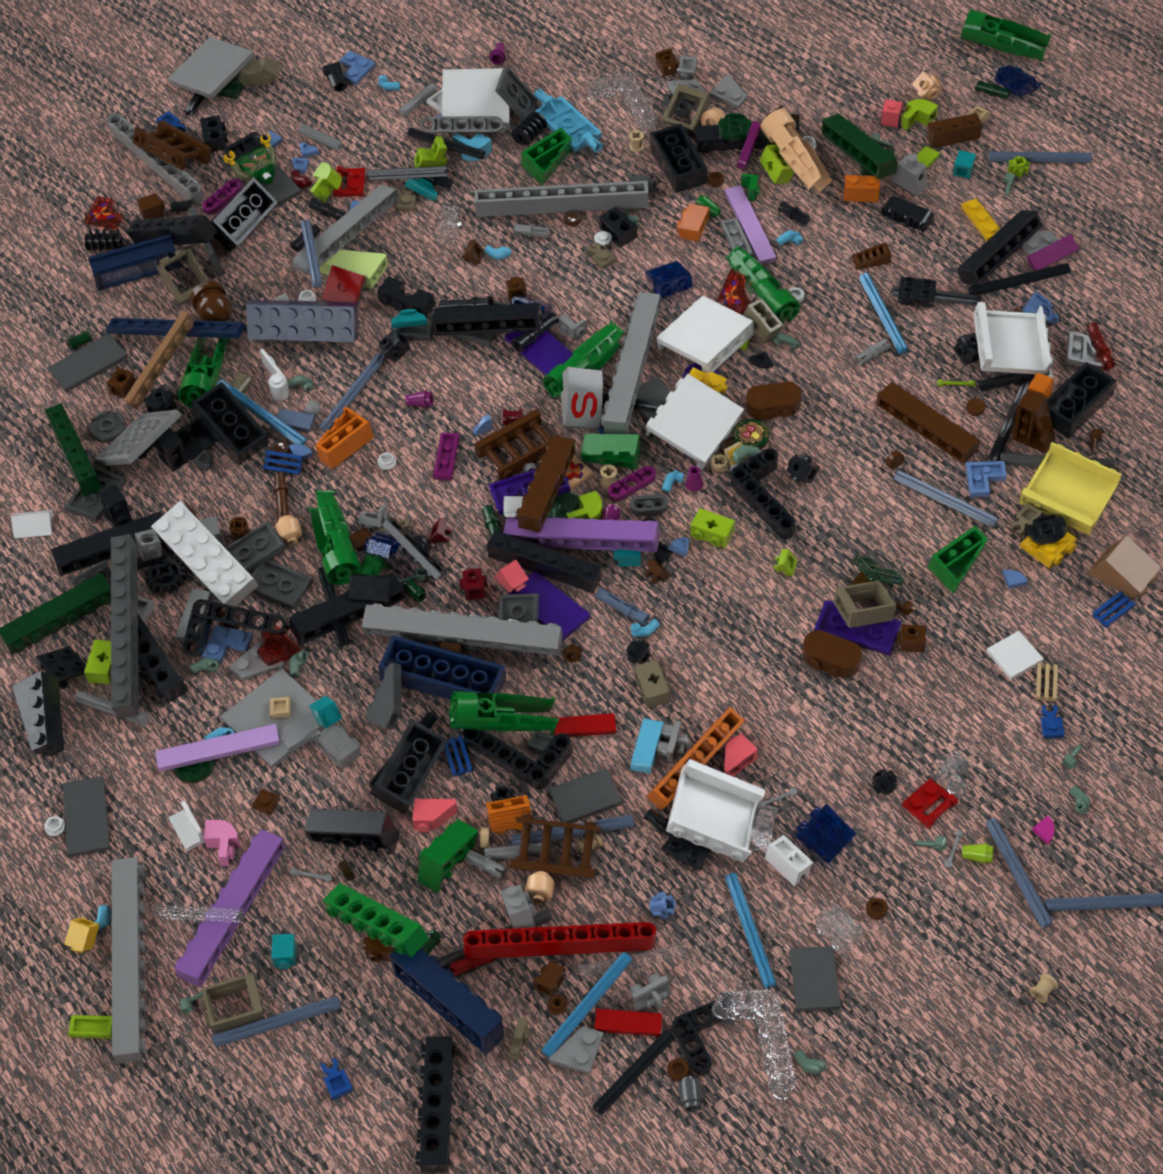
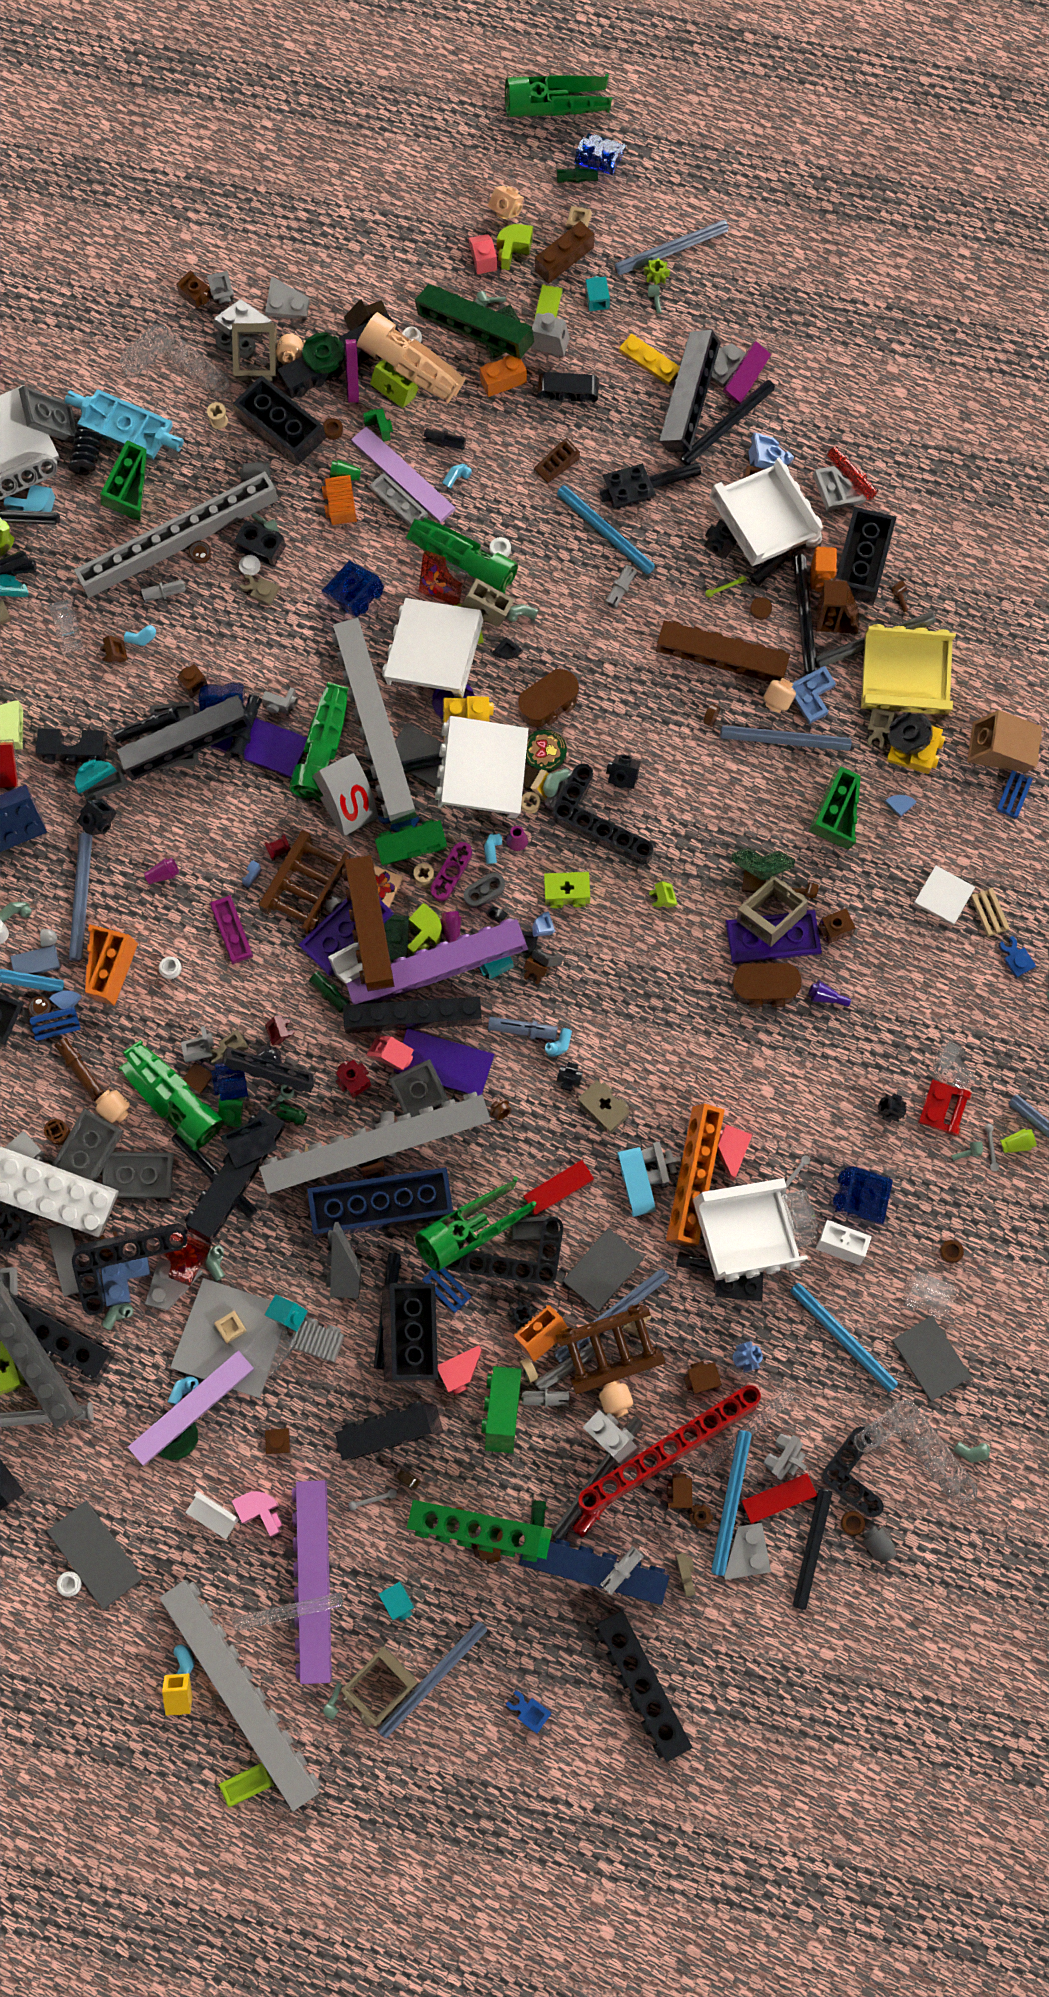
camera: 30 degrees left, 20 degrees up
(465, 994) = (621, 1570): none -> light grey pin
(617, 905) = (702, 1377): none -> reddish brown brick
(664, 563) = (545, 959): none -> dark grey tile
(875, 681) = (822, 993): none -> dark purple cone
(956, 465) = (779, 695): none -> light nougat head

